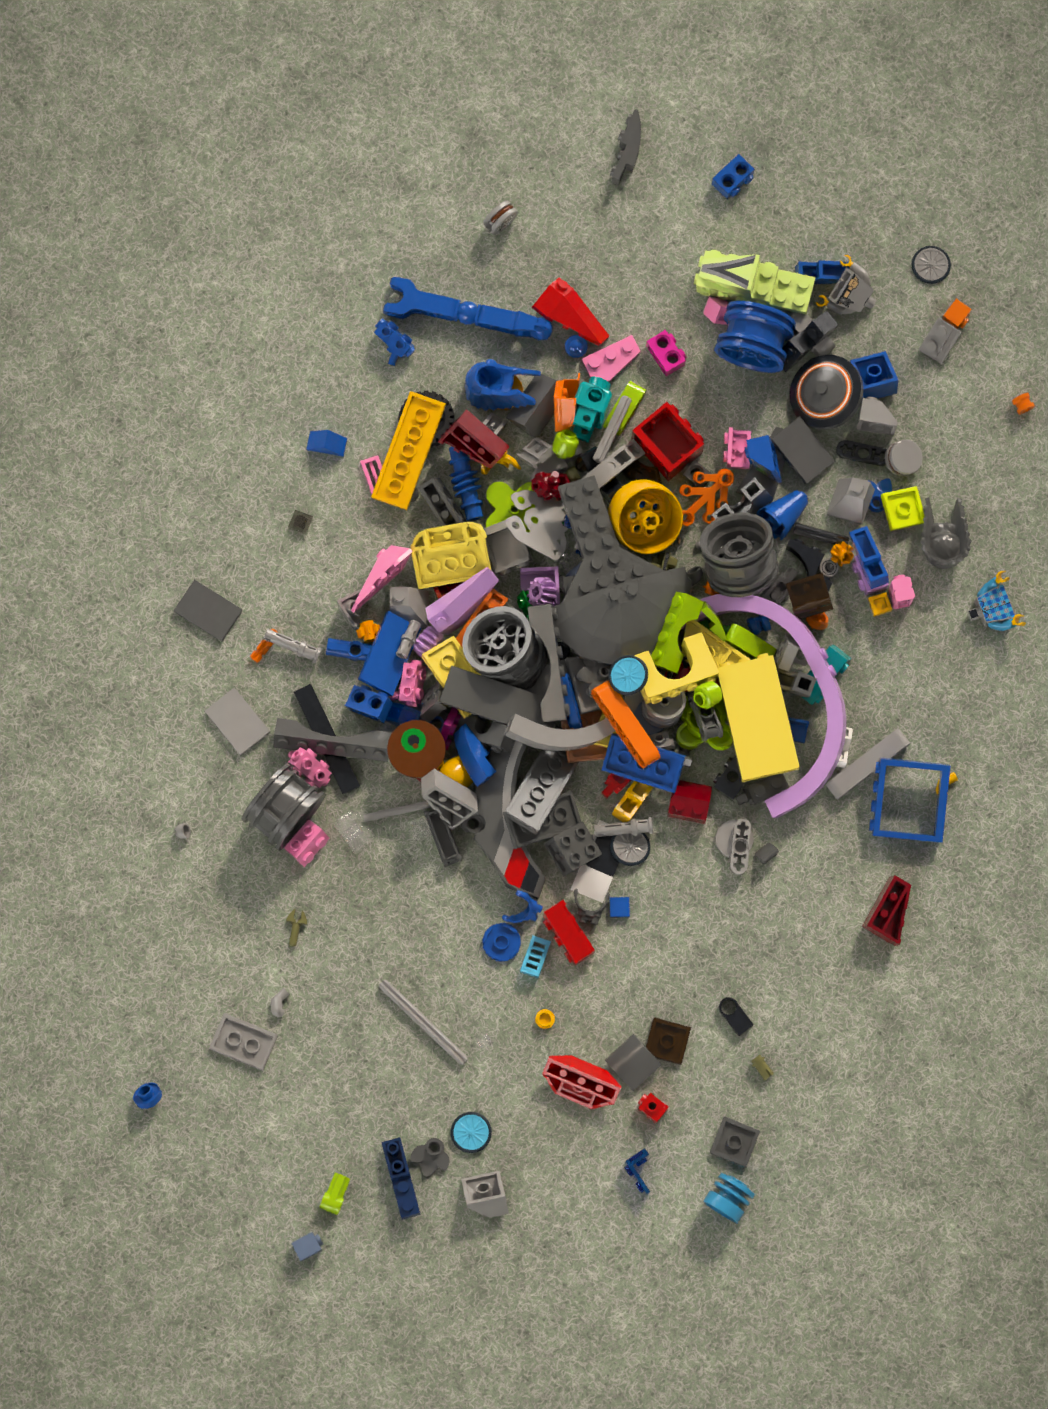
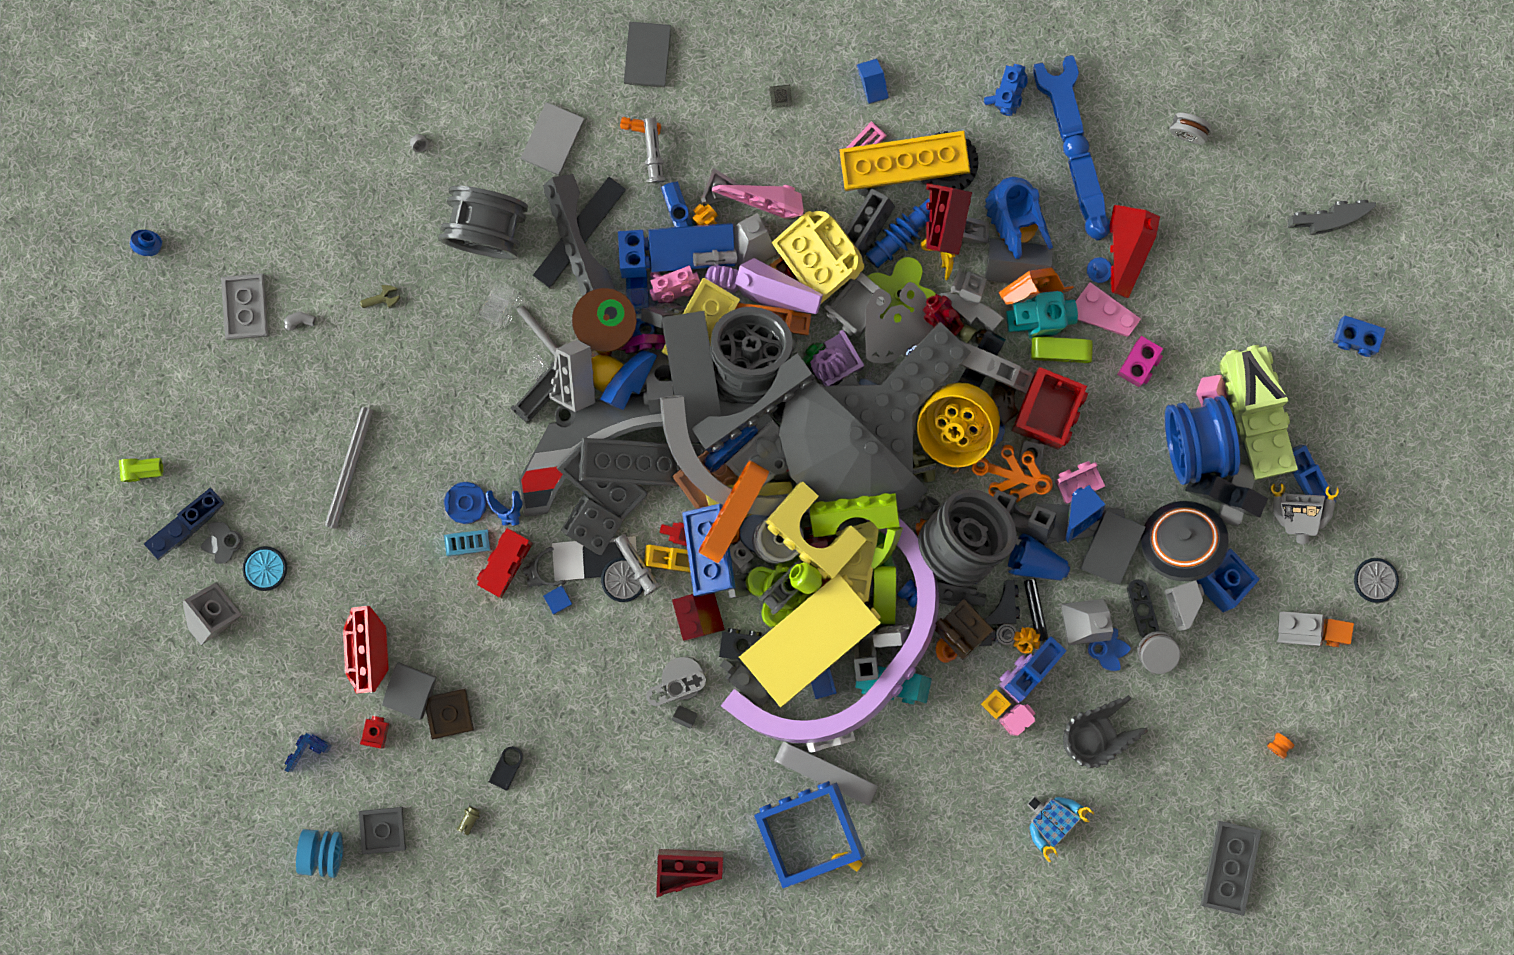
camera: 65 degrees right, 5 degrees up
(307, 843) = (465, 265): bright pink bracket -> none
(307, 1246) = (76, 468): sand blue brick -> none
(314, 771) = (540, 223): bright pink brick -> none
(545, 1019) = (410, 583): yellow plate -> none
(565, 444) = (990, 308): lime head -> none
(612, 429) = (1031, 347): light grey axle -> none
(628, 675) = (782, 488): medium azure wheel -> none
(903, 508) = (1106, 678): neon yellow tile -> none

